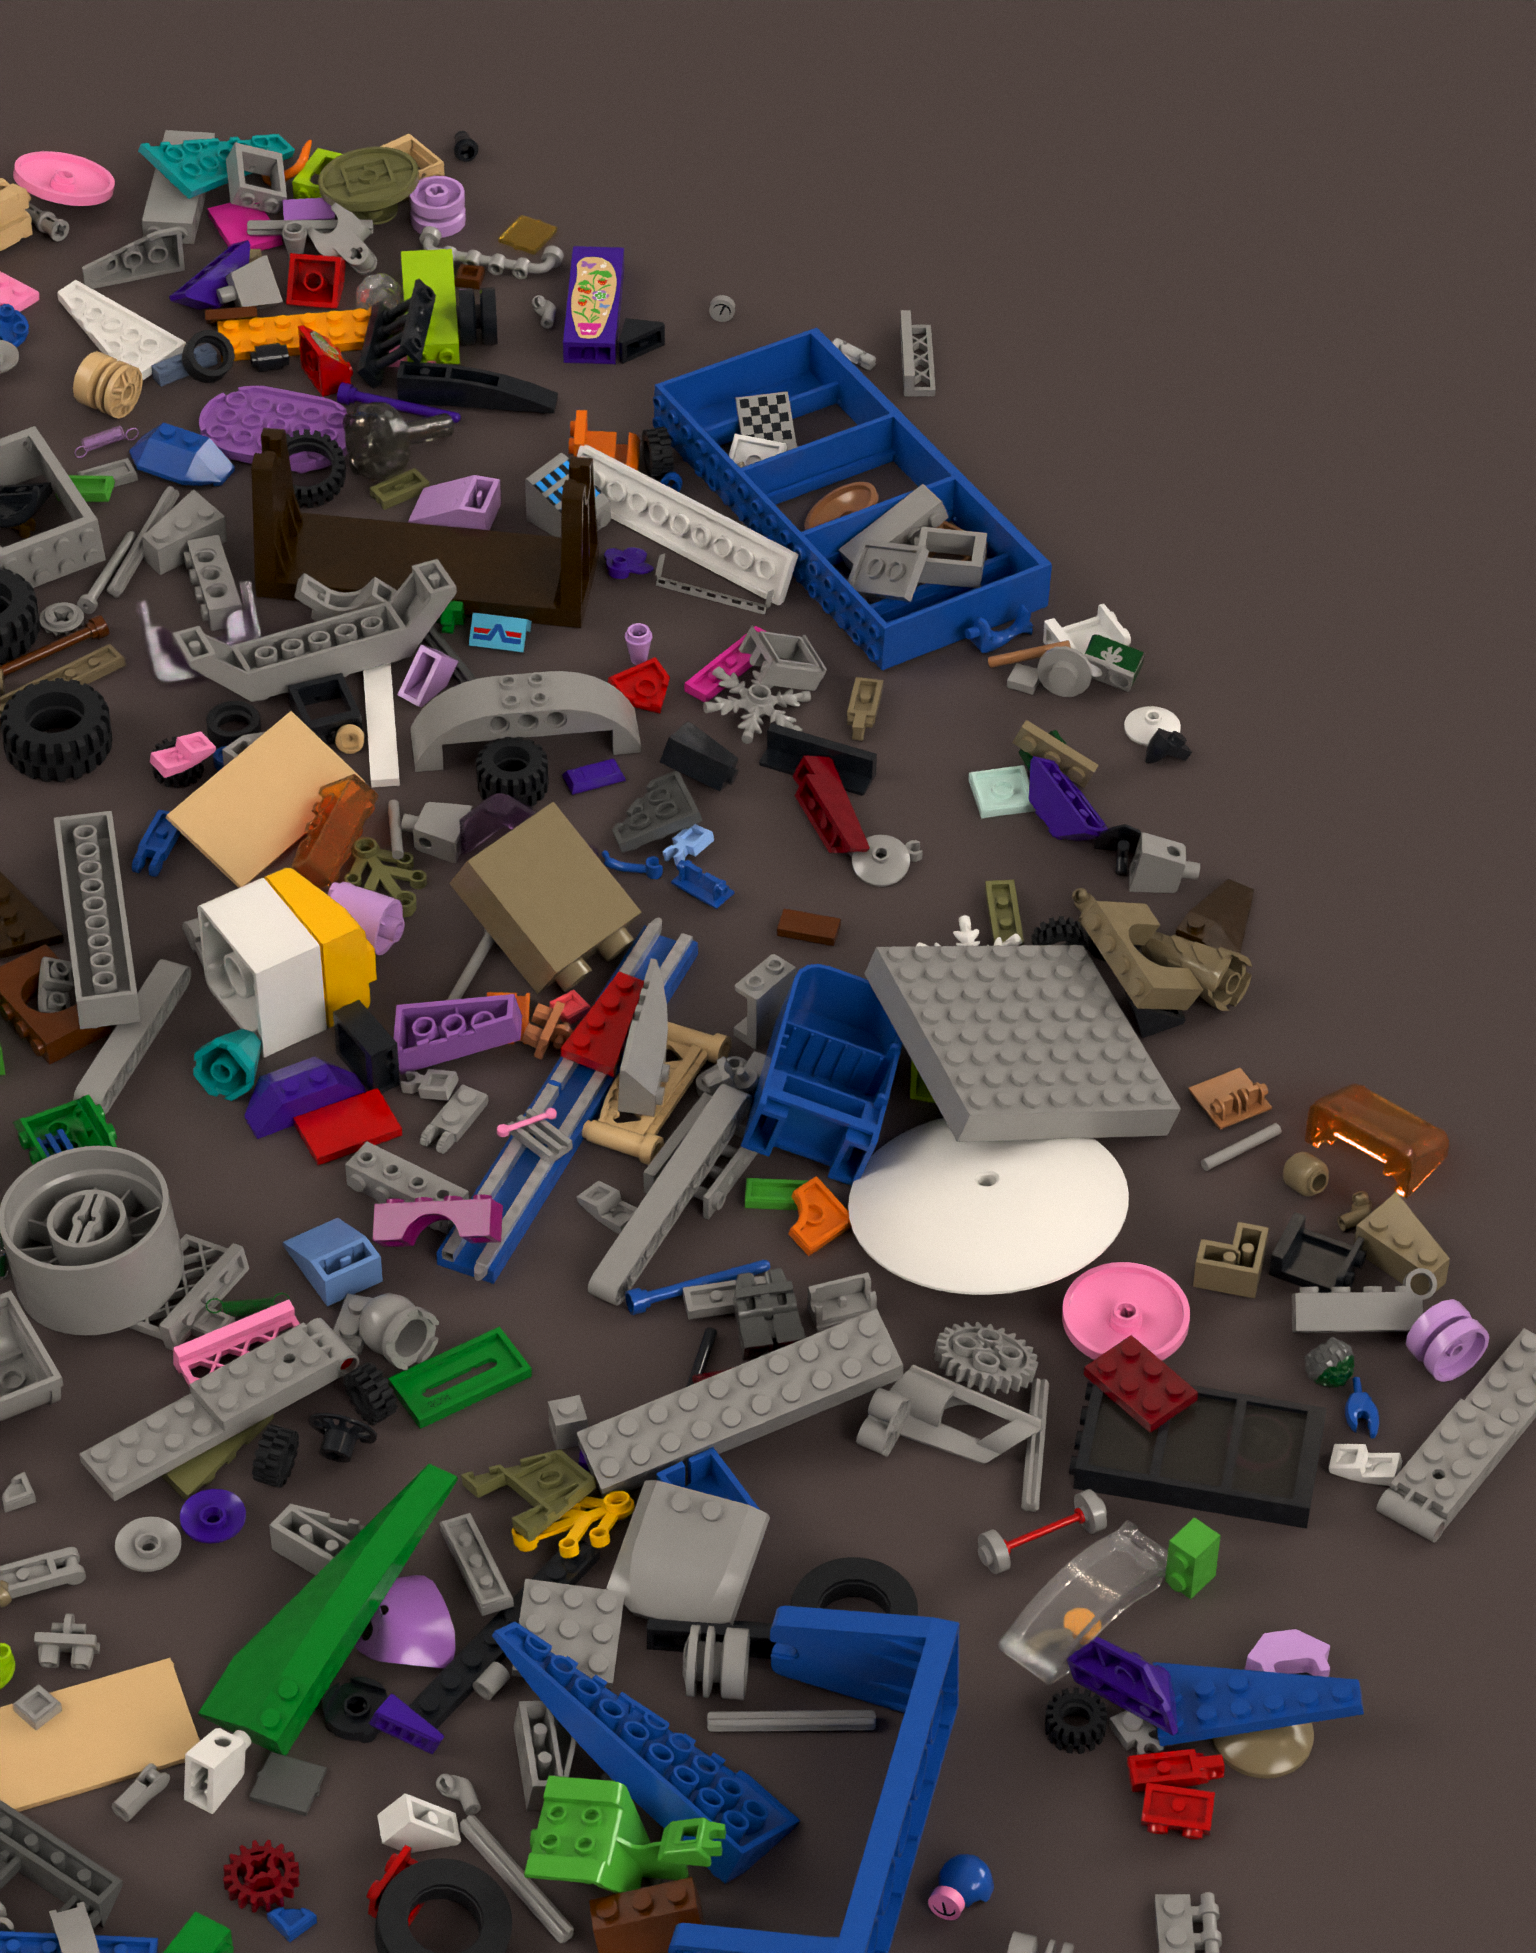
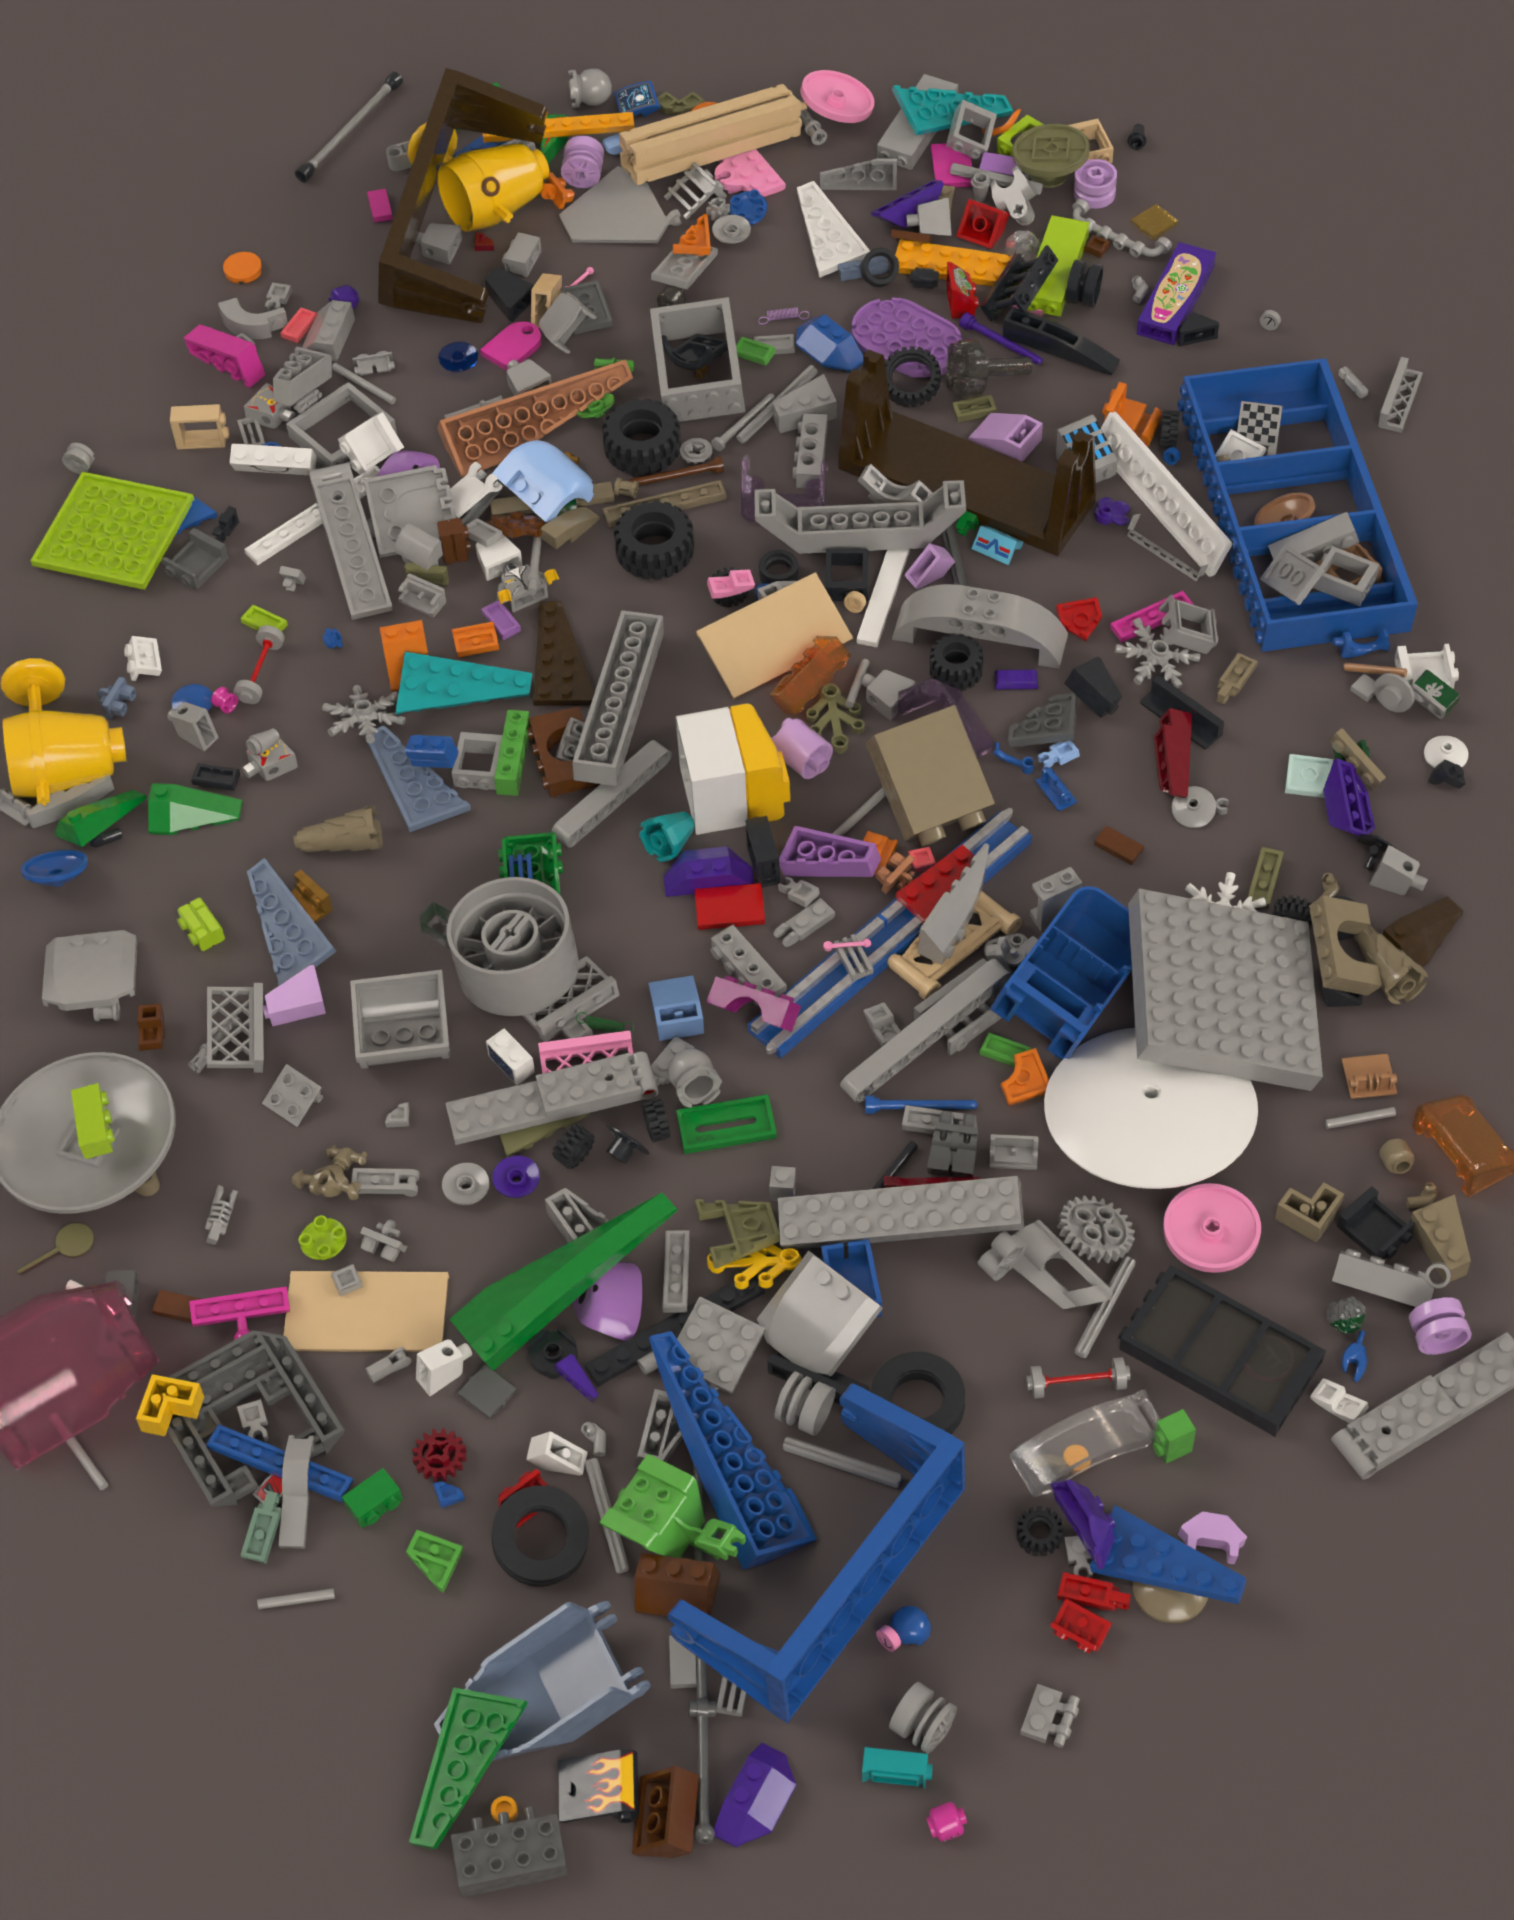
camera: 25 degrees right, 10 degrees up
(107, 384) = (799, 273): tan wheel -> none
(140, 1377) = (510, 1056): none -> white brick
(156, 844) = (687, 648): blue hinge -> none
(638, 641) = (1090, 581): lavender cone -> none
(1140, 1383) = (1196, 1287): dark red plate -> none

